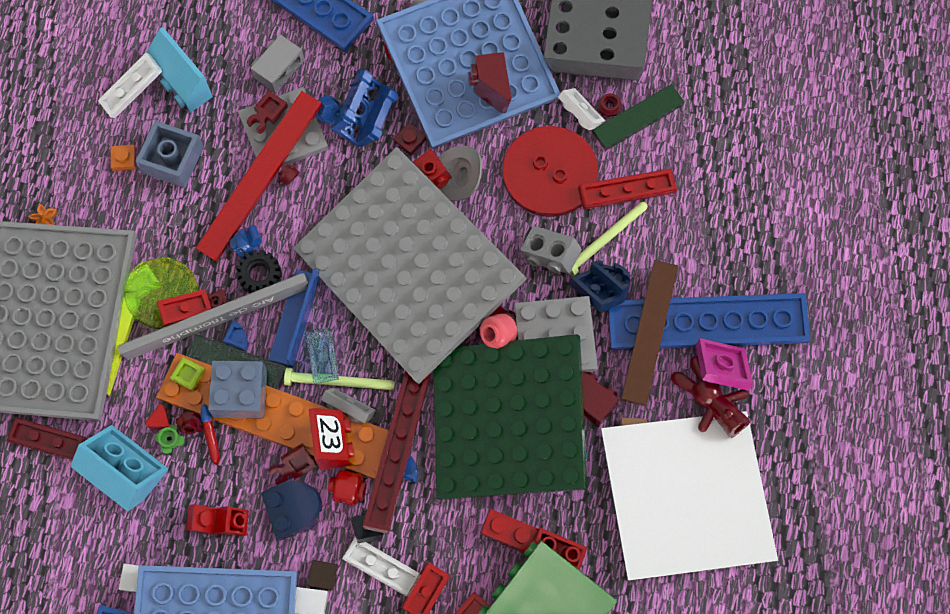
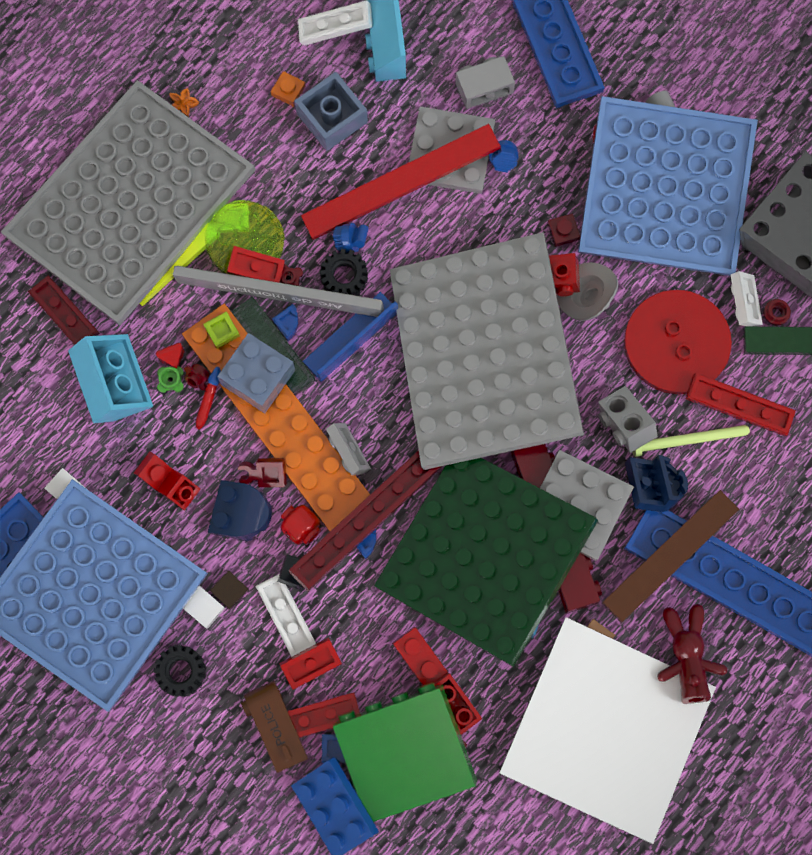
camera: 30 degrees right, 5 degrees up
(267, 109) = (448, 123): dark red plate -> none
(288, 174) = (428, 195): dark red plate -> none
(291, 376) = (313, 390): yellowish green bar -> none
(321, 355) = (352, 387): clear light blue slope -> none
(330, 438) = (310, 471): slope -> none
(372, 112) = (545, 183): blue piece -> none
(490, 80) = (673, 221): dark red slope -> none
(498, 330) = (526, 467): coral head -> none
(724, 364) = (721, 630): dark pink plate -> none

